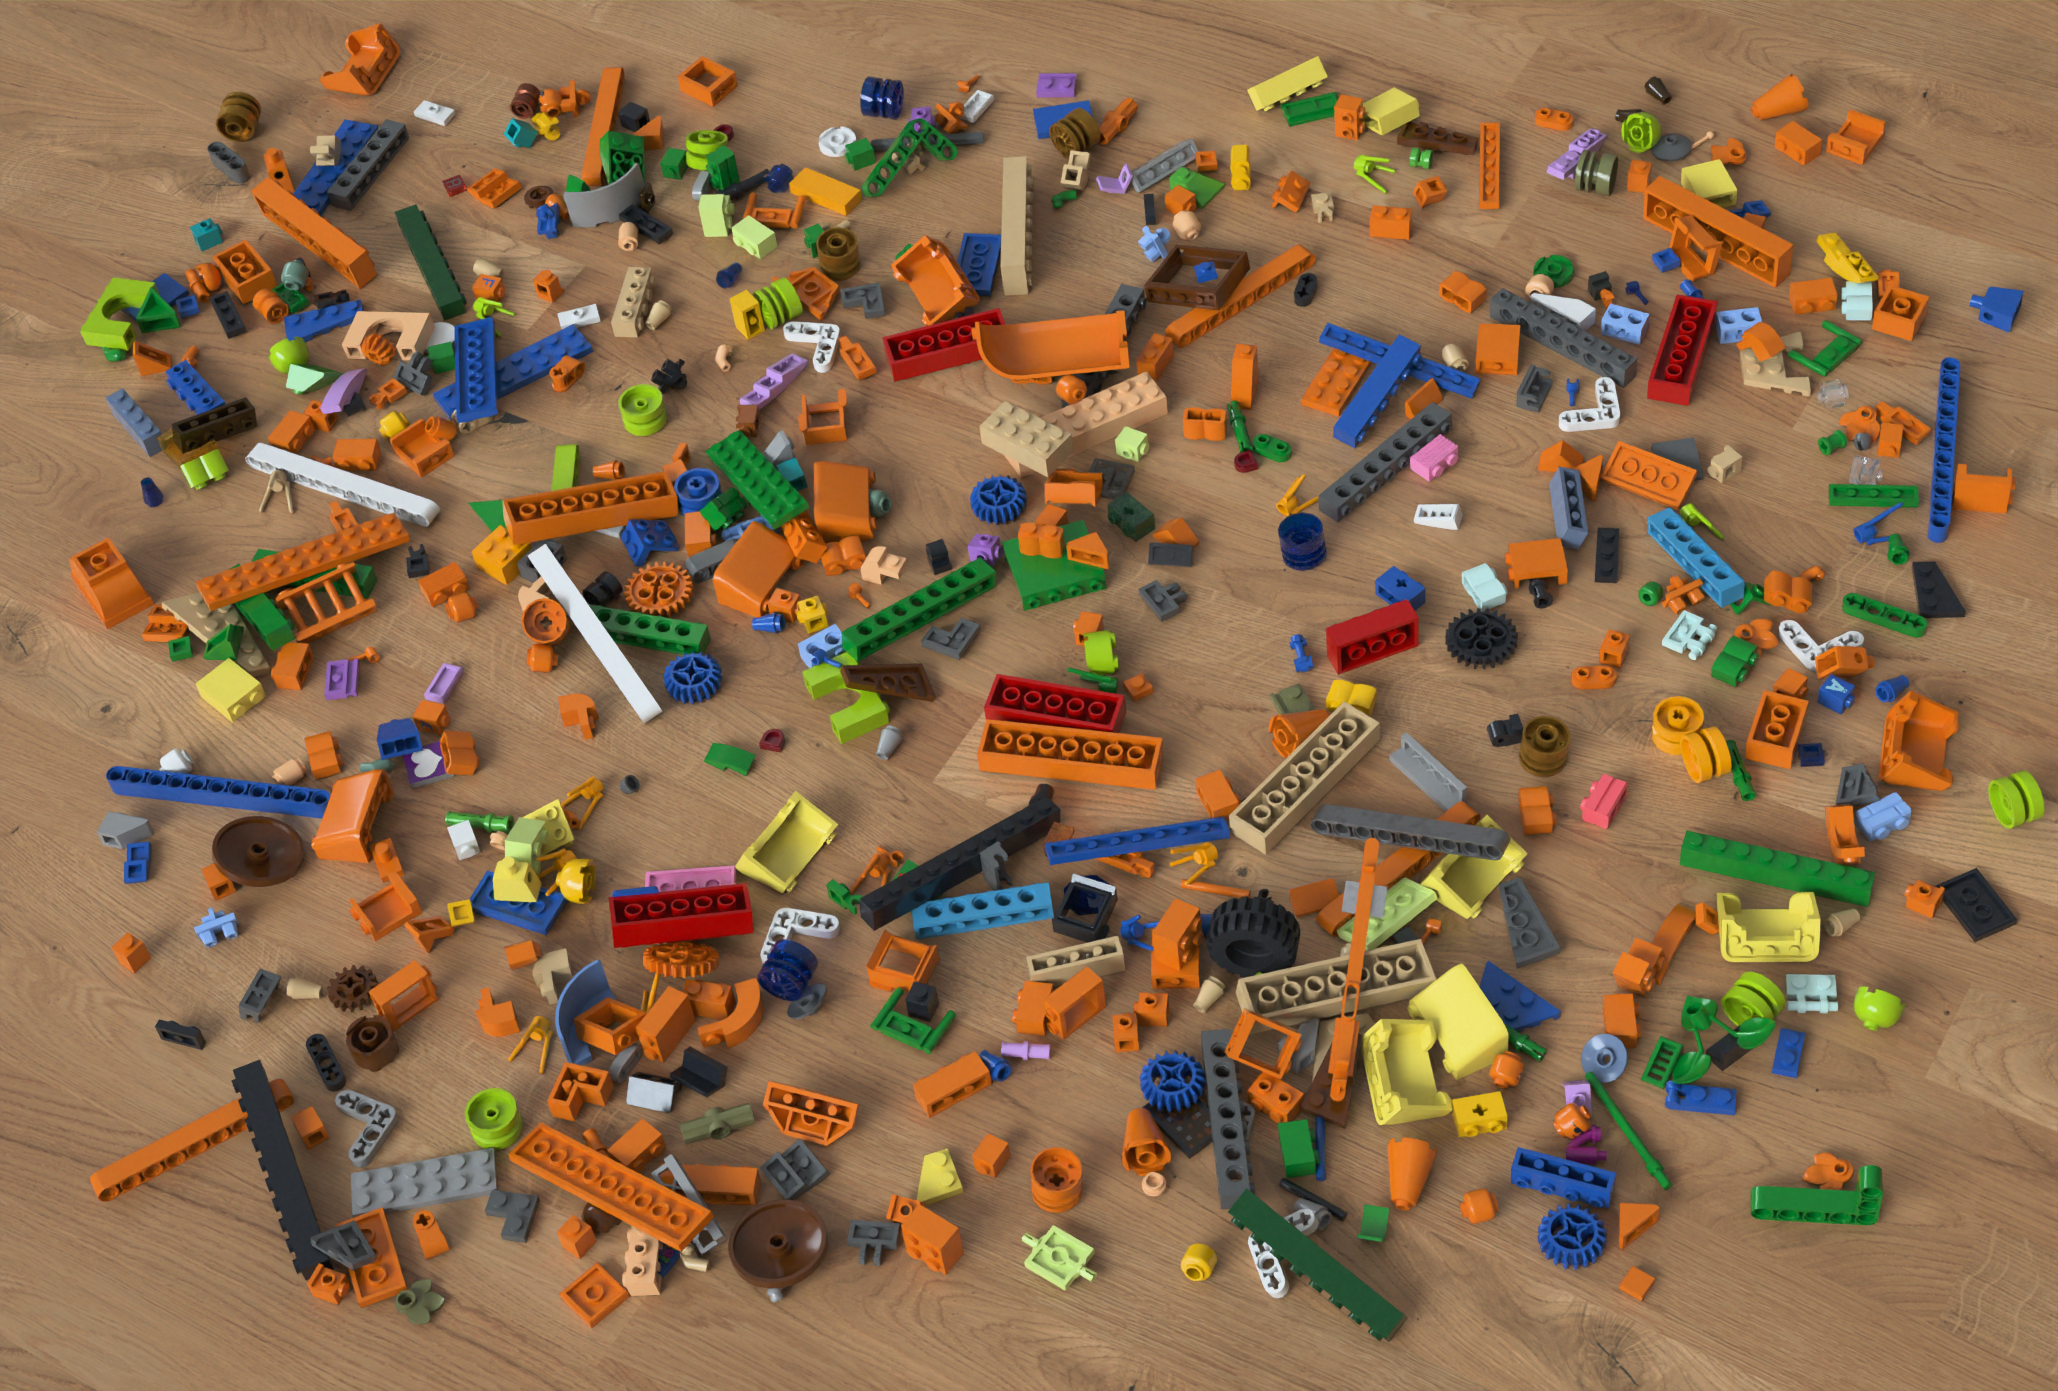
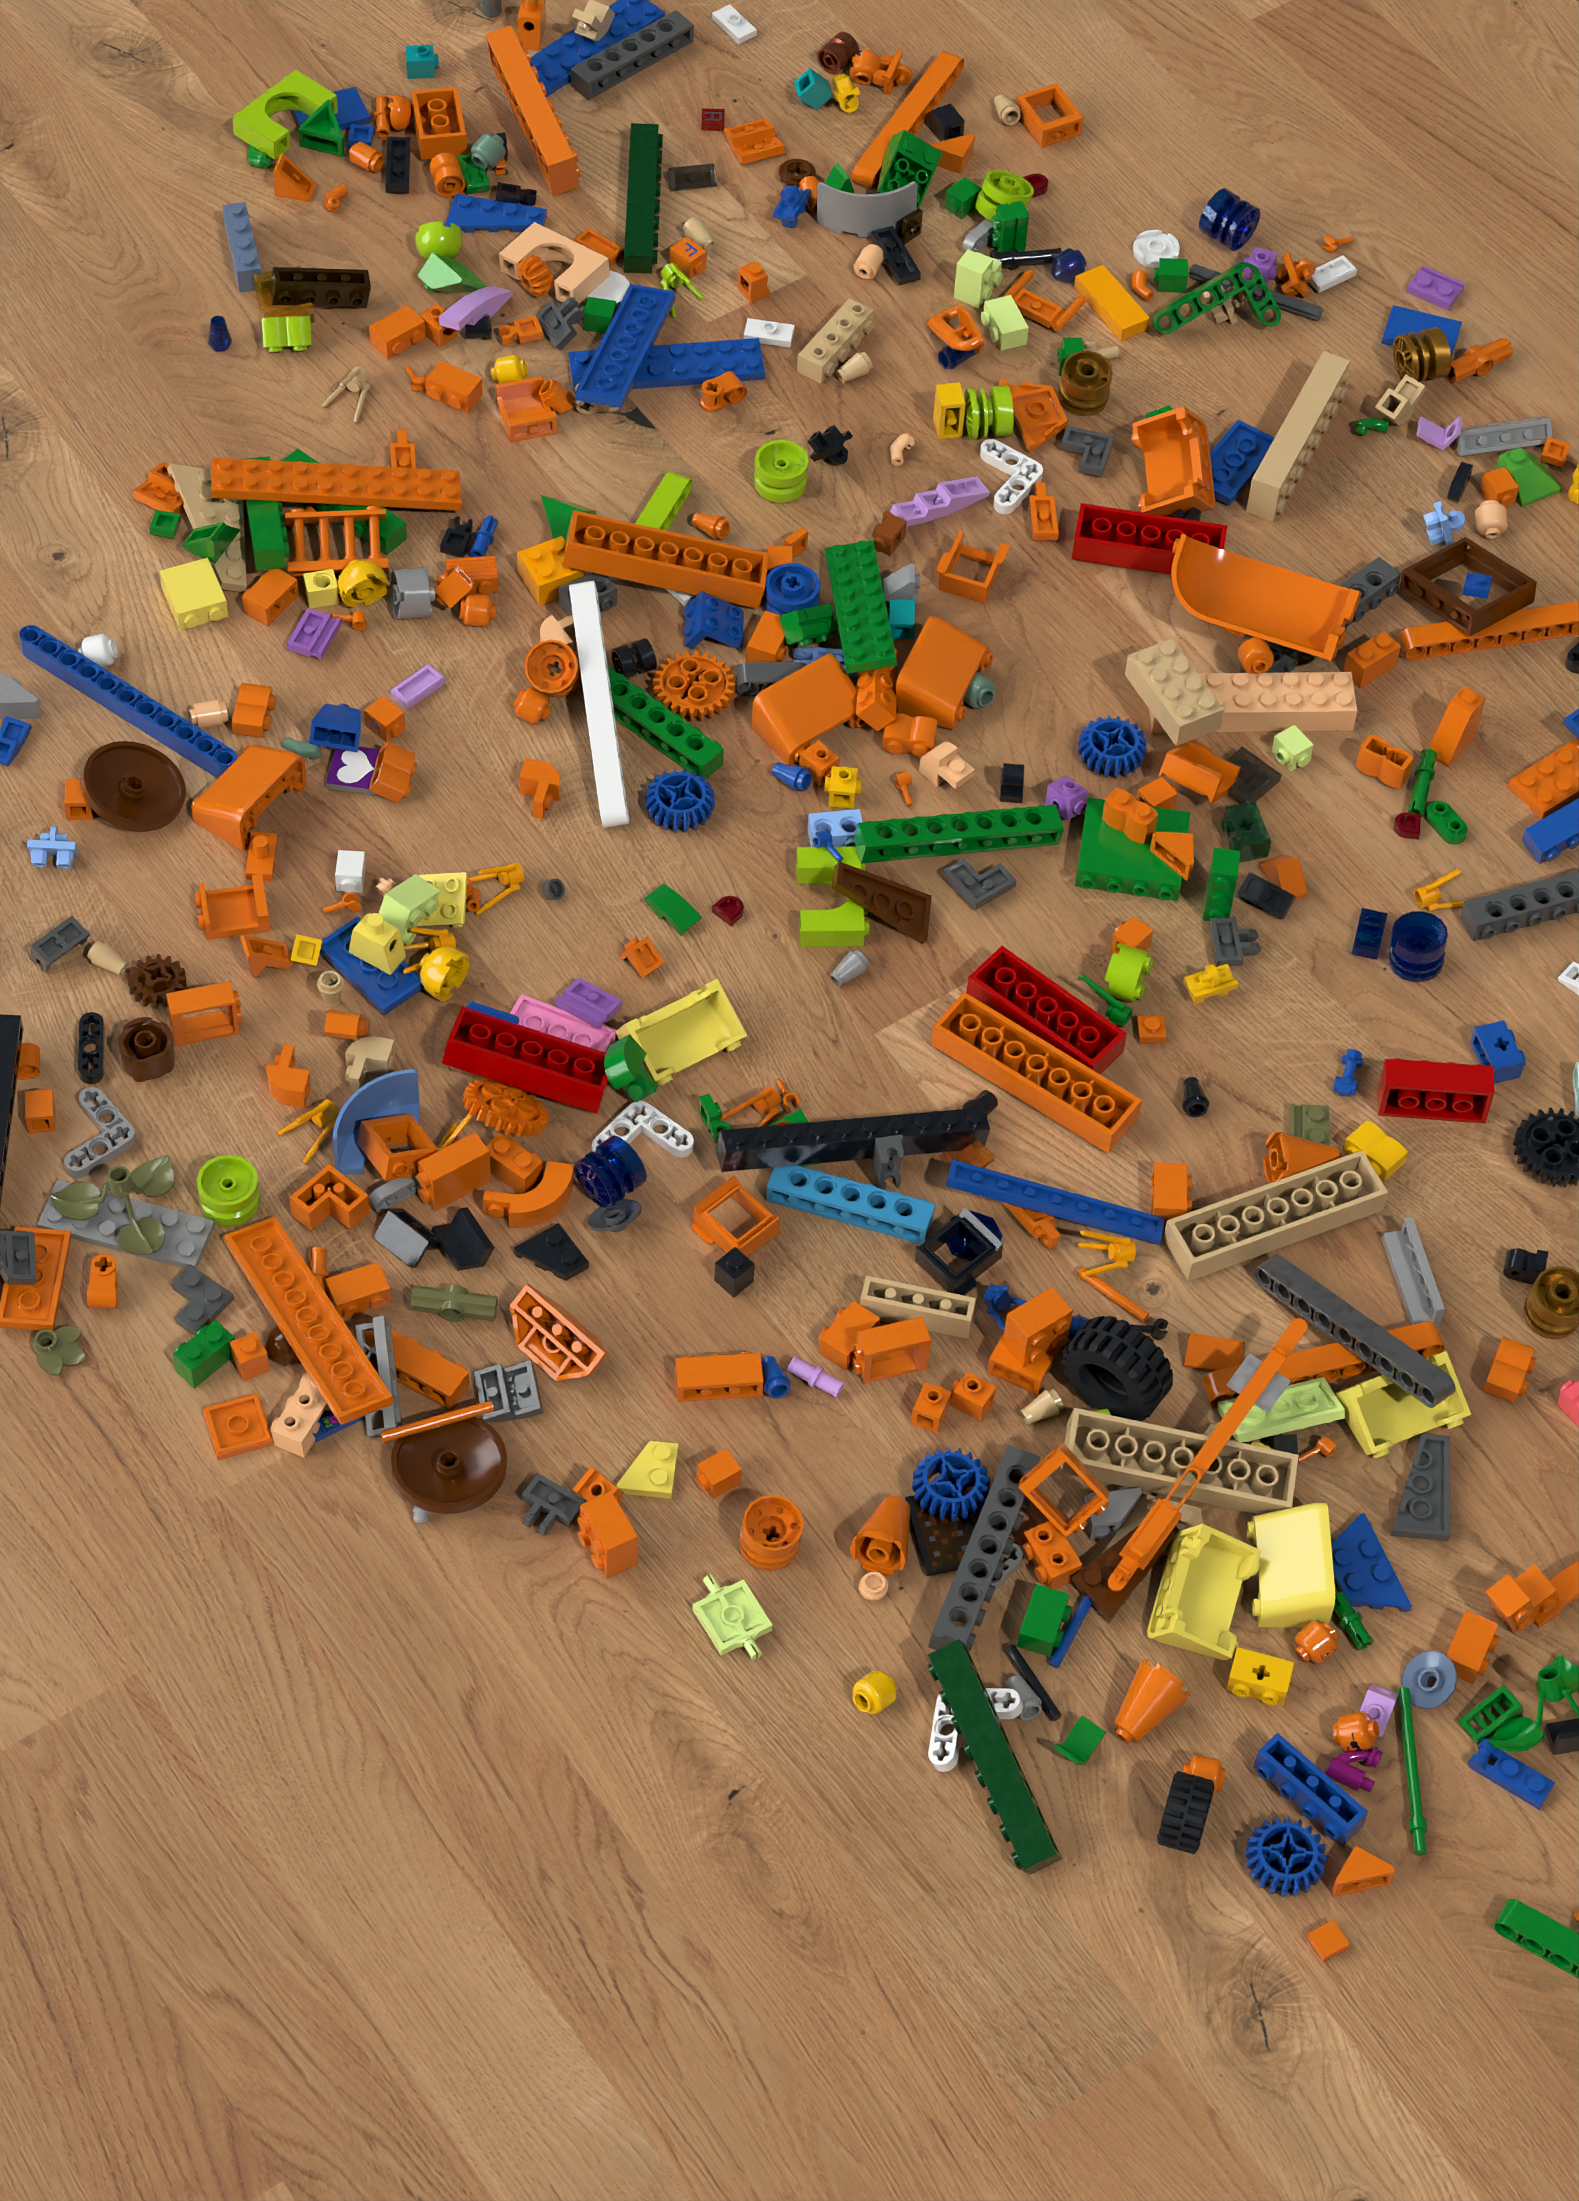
camera: 15 degrees right, 5 degrees up
(108, 583) = (127, 418): orange container -> none
(192, 388) = (319, 235): blue brick -> none
(200, 319) = (366, 157): none -> orange brick
(330, 643) = (321, 588): none -> light yellow brick
(344, 484) = (423, 415): white beam -> none
(362, 624) = (362, 583): none -> yellow cylinder
(404, 616) = (411, 593): none -> light grey brick
(416, 307) = (600, 245): none -> orange tile
(428, 1139) = (152, 1178): none -> olive plant
(434, 597) = (452, 587): none -> orange brick
(438, 552) = (484, 537): none -> blue axle
(460, 232) = (692, 177): none -> clear smoke slope
(474, 862) = (349, 900): none -> orange hand
(488, 822) = (386, 863): bright green pin -> none
(495, 932) = (330, 986): none -> tan cone
(538, 1251) = (203, 1353): none -> green brick
(674, 90) = (1007, 110): none -> tan cone
(692, 1261) = (353, 1437): tan arm -> none
(702, 855) = (589, 1003): none -> medium lavender plate
(725, 802) = (643, 956): none -> orange bracket
(731, 256) = (954, 337): none -> orange piece
(752, 1216) = (437, 1421): none -> orange bar
(759, 889) = (624, 1069): none -> green brick
(774, 1051) = (554, 1252): none -> black wing
(839, 172) = (1138, 285): none -> orange arm
(907, 1029) = (704, 1296): green plate -> none
(1135, 559) = (1221, 884): none -> green brick
(1165, 632) = (1211, 982): none -> yellow hips
(1198, 722) = (1194, 1099): none -> black cone
(1260, 549) = (1369, 933): none -> clear blue slope
(1483, 1238) = (1185, 1812): none -> black tyre

